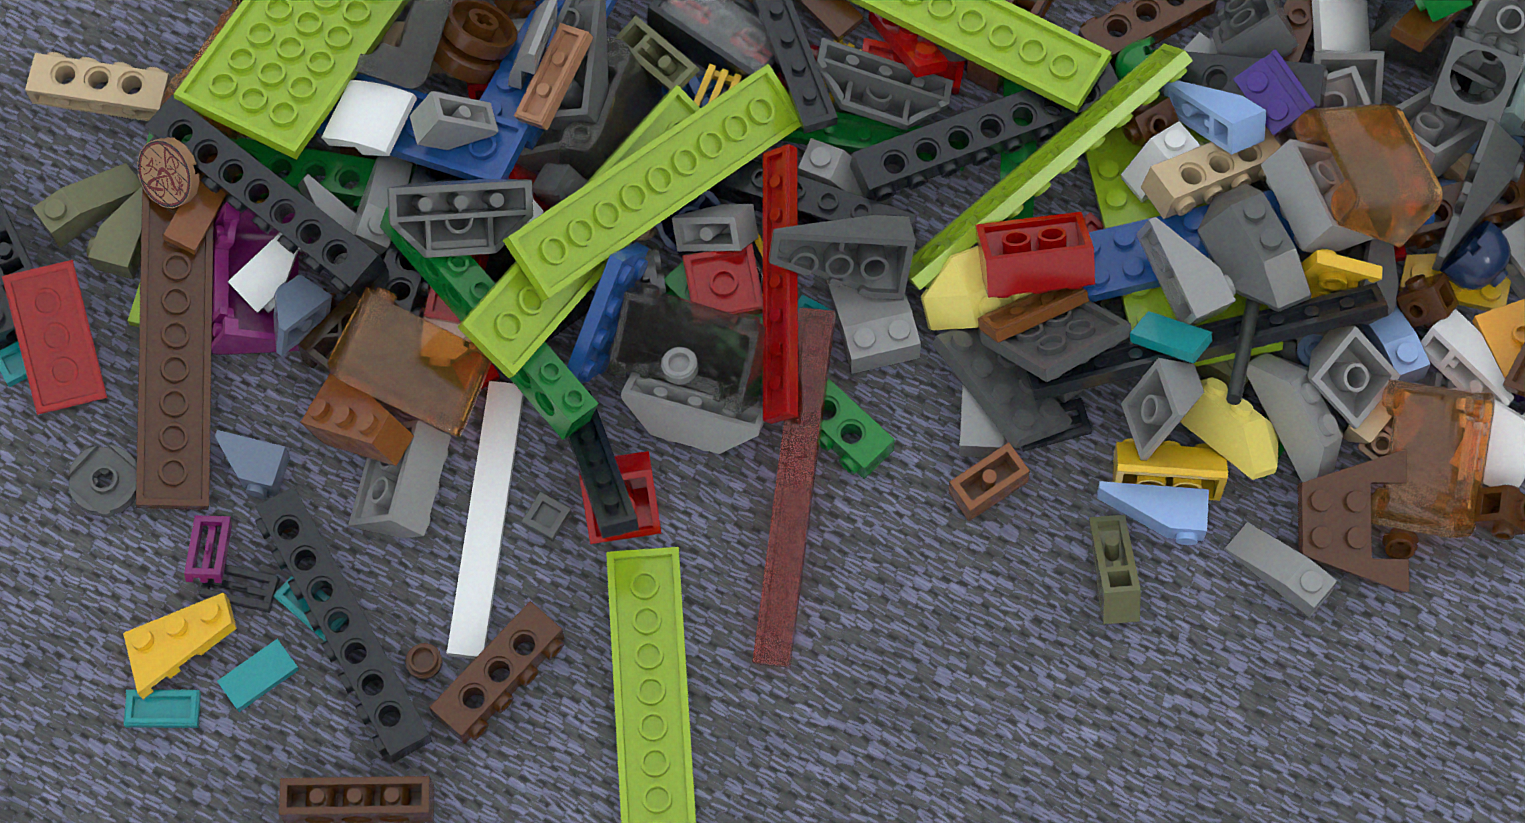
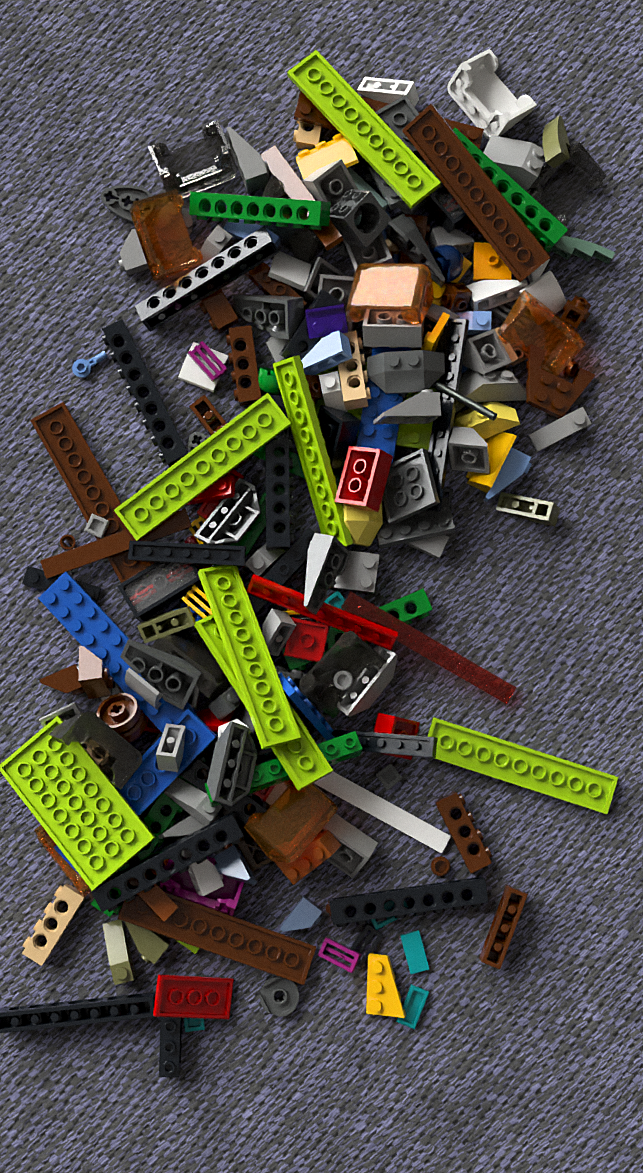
camera: 75 degrees left, 15 degrees up
(168, 172) = (133, 908): medium nougat tile -> none
(369, 117) = (146, 790): white slope -> none
(553, 76) = (168, 685): nougat tile -> none
(989, 481) = (463, 551): dark orange brick -> none
(1030, 312) = (390, 501): dark orange tile -> none
(1099, 189) = (339, 433): none -> black slope
(1171, 337) = (437, 431): teal tile -> none

